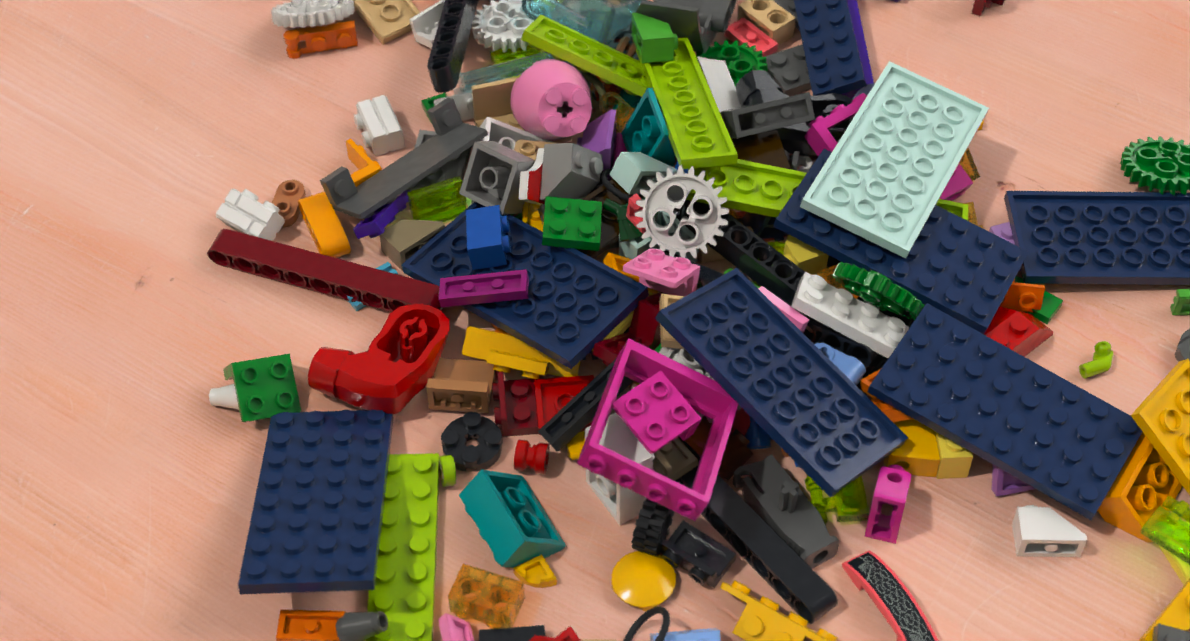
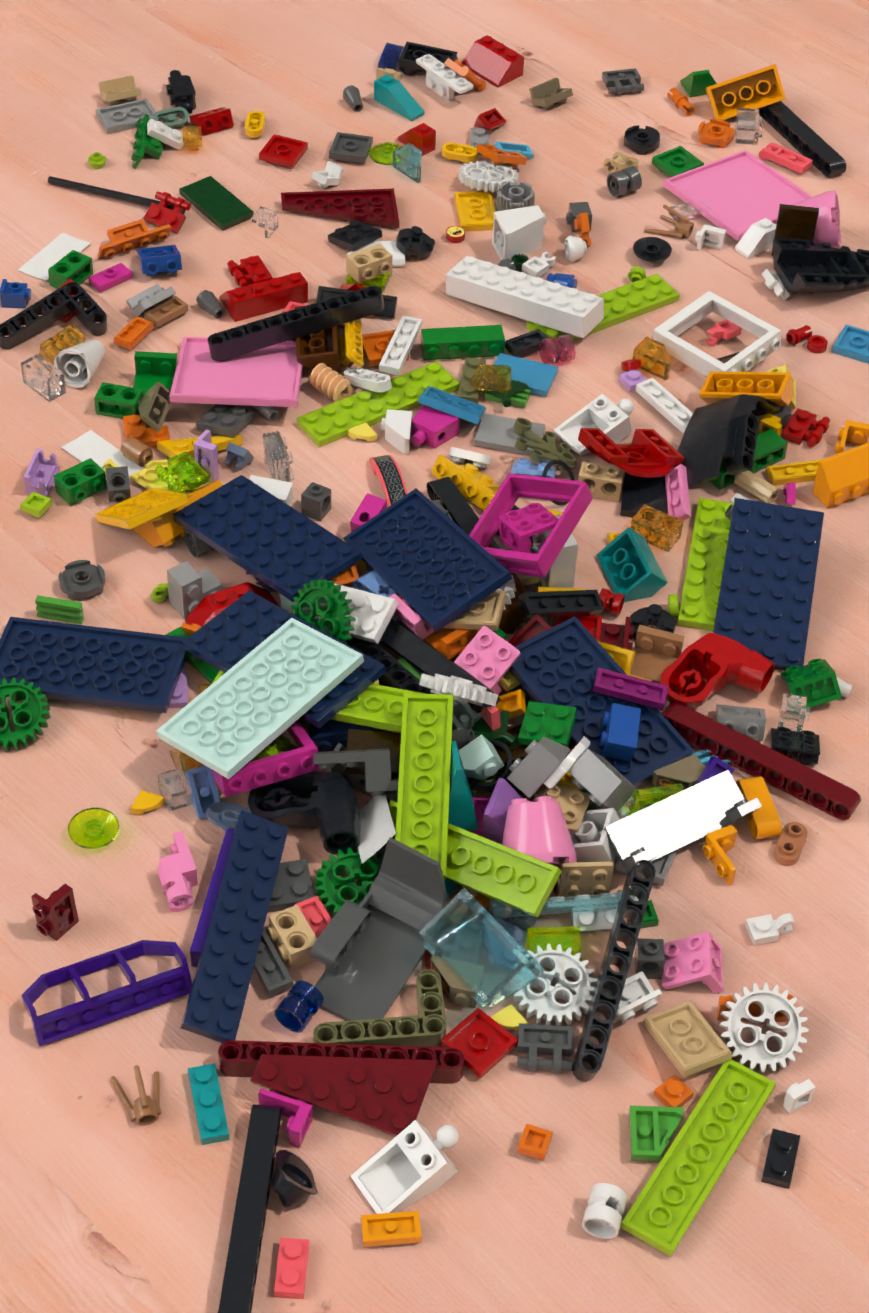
camera: 170 degrees left, 5 degrees down
(249, 216) = (824, 820): white brick -> none
(282, 310) = (801, 742): none -> black hinge
(285, 337) = (793, 712): none -> clear brick
(311, 114) = (766, 930): none -> white plate
(348, 326) = (743, 720): none -> light grey bracket
(379, 125) = (702, 895): white brick -> none
(384, 61) = (692, 961): none -> bright pink bracket
(421, 52) = (649, 957): none -> dark grey brick
(653, 39) = (434, 844): bright green slope -> none
(899, 46) = (178, 874): none -> bright pink plate
(978, 531) = (316, 501): none -> dark grey brick
(1006, 75) = (93, 828): none -> clear neon green dish
(1064, 576) = (277, 458): none -> clear brick
(1066, 342) = (188, 587): none -> light grey brick
(1128, 599) = (238, 453): none -> sand blue tile
(1165, 556) = (207, 455): none -> lavender panel

